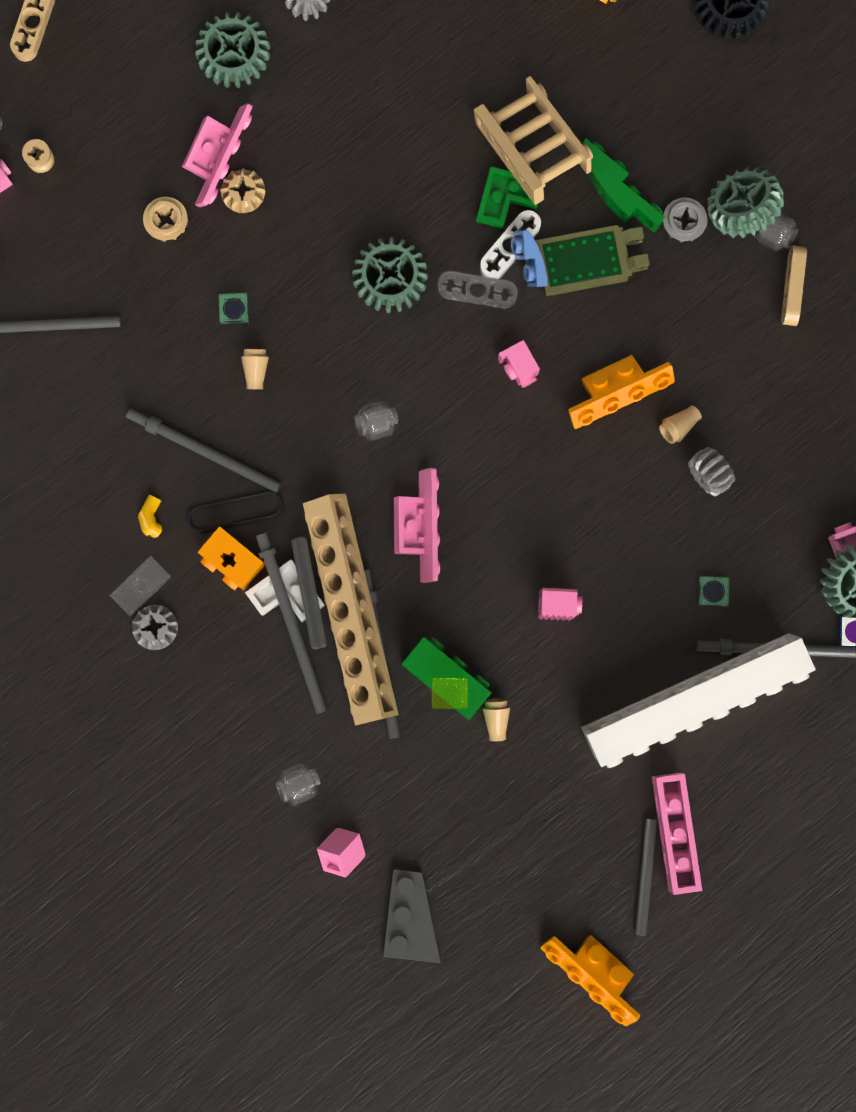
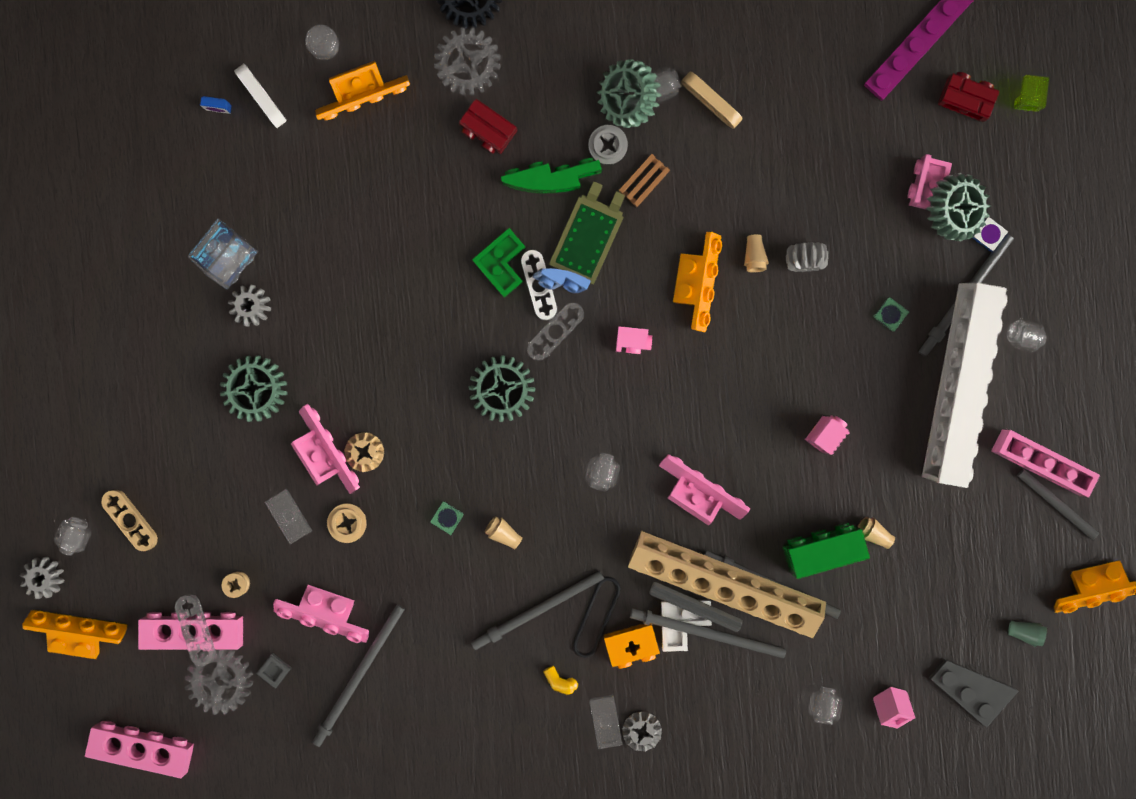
camera: 60 degrees left, 5 degrees up
(67, 251) = (324, 611): none -> bright pink bracket
(135, 161) = (288, 516): none -> clear plate
(449, 693) = (843, 559): clear neon green panel -> none
(503, 933) = (1028, 632): none -> sand green cone
(520, 162) = (486, 237): tan fence -> none
(623, 99) = (488, 127): none -> dark red brick
(680, 20) = (458, 42): none -> clear gear
(684, 266) = (658, 165): none -> medium nougat tile
(785, 731) = (1026, 335): none -> clear head

